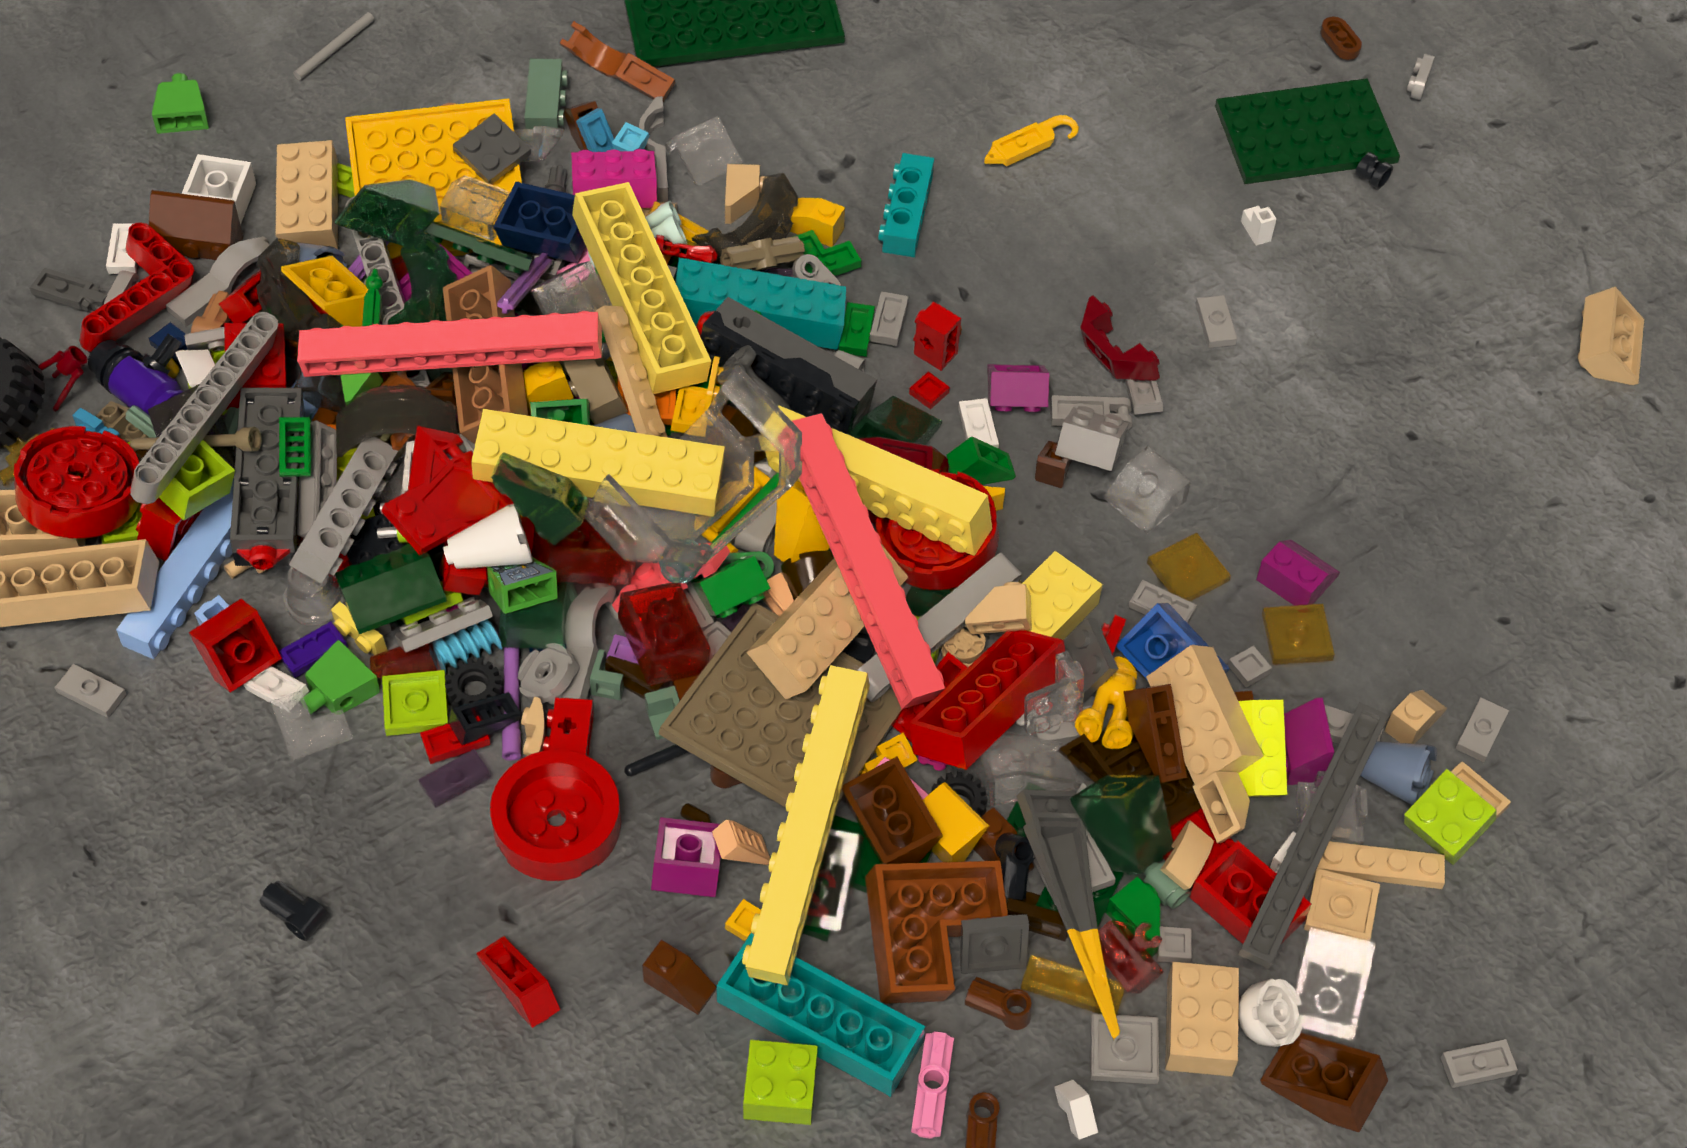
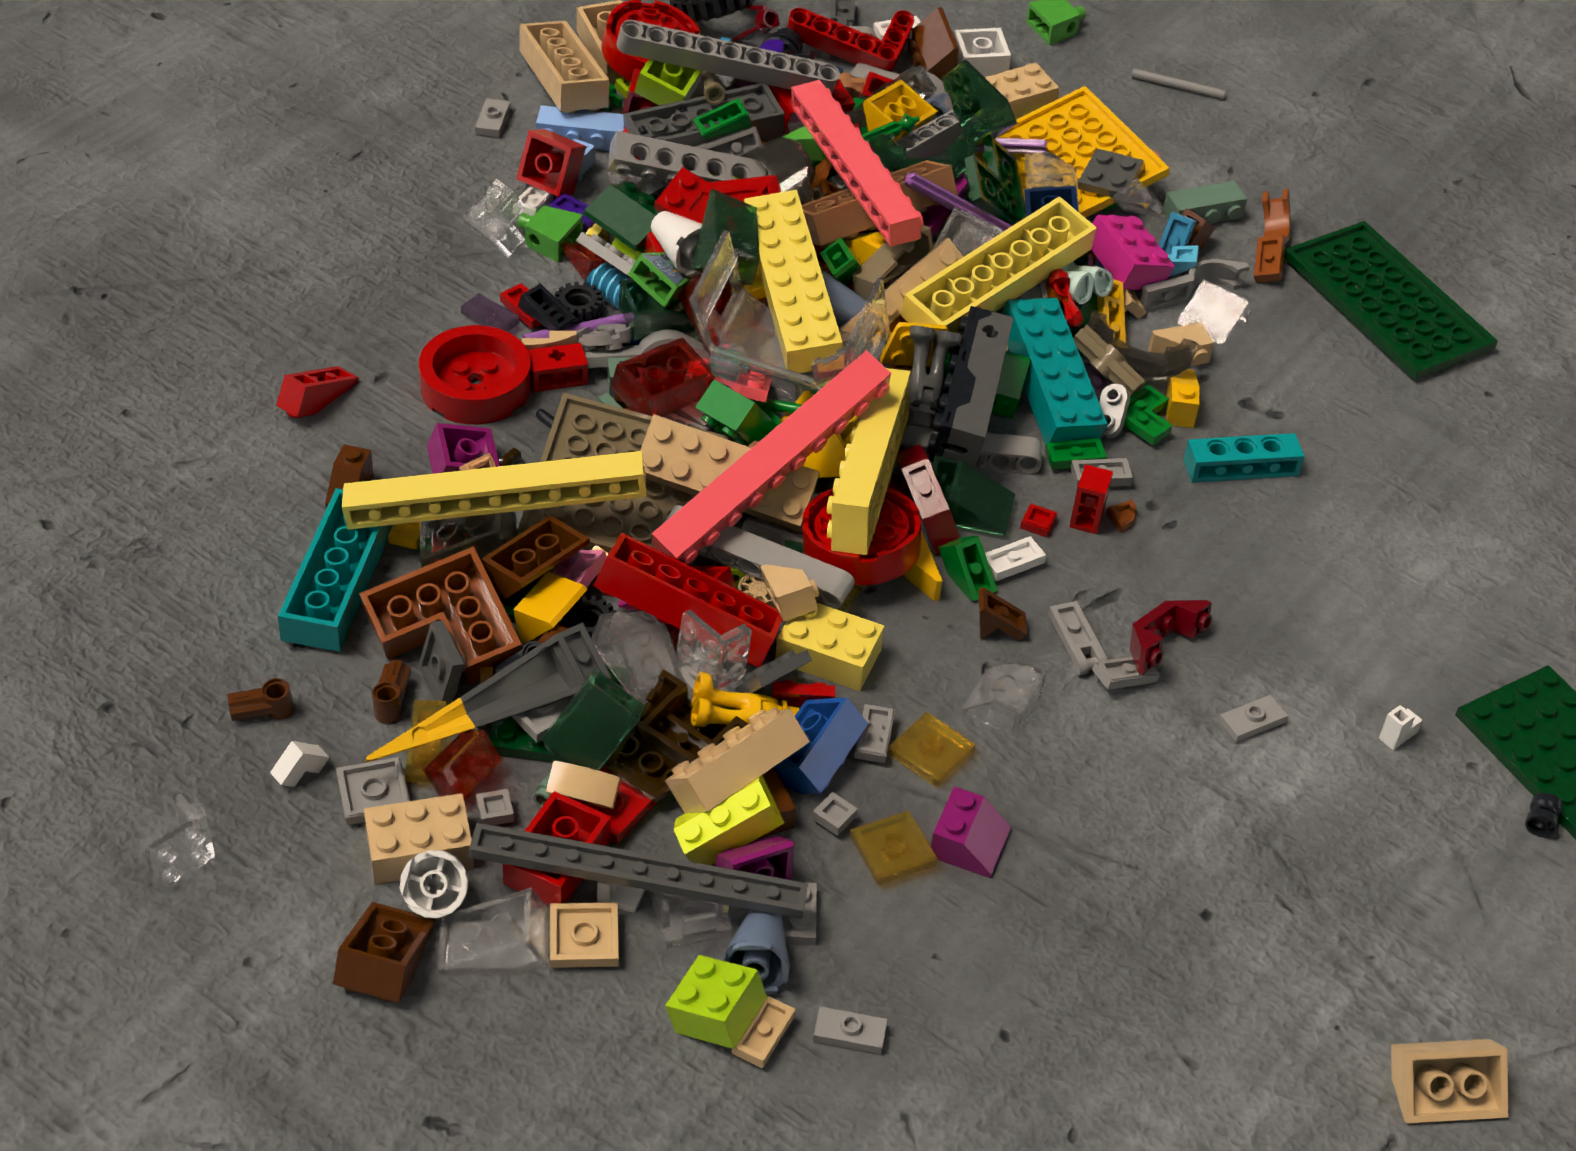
camera: 70 degrees right, 10 degrees down
(299, 914) = (339, 260): black piece -> none
(414, 702) = (550, 271): lime plate -> none
(780, 1082) = (267, 559): lime brick -> none
(931, 1102) = (294, 659): bright pink piece -> none
(1018, 387) = (1074, 574): magenta slope -> none
(1028, 140) = (1385, 529): yellow plate -> none
(1092, 437) = (1033, 630): light grey brick -> none
(1135, 905) = (518, 771): green slope -> none
(1155, 725) = (703, 727): reddish brown slope -> none
(1223, 803) = (655, 804): tan slope -> none
(1385, 864) = (647, 962): tan plate -> none
(1414, 717) = (837, 962): tan slope -> none
(1479, 1063) = (442, 1080): light grey plate -> none

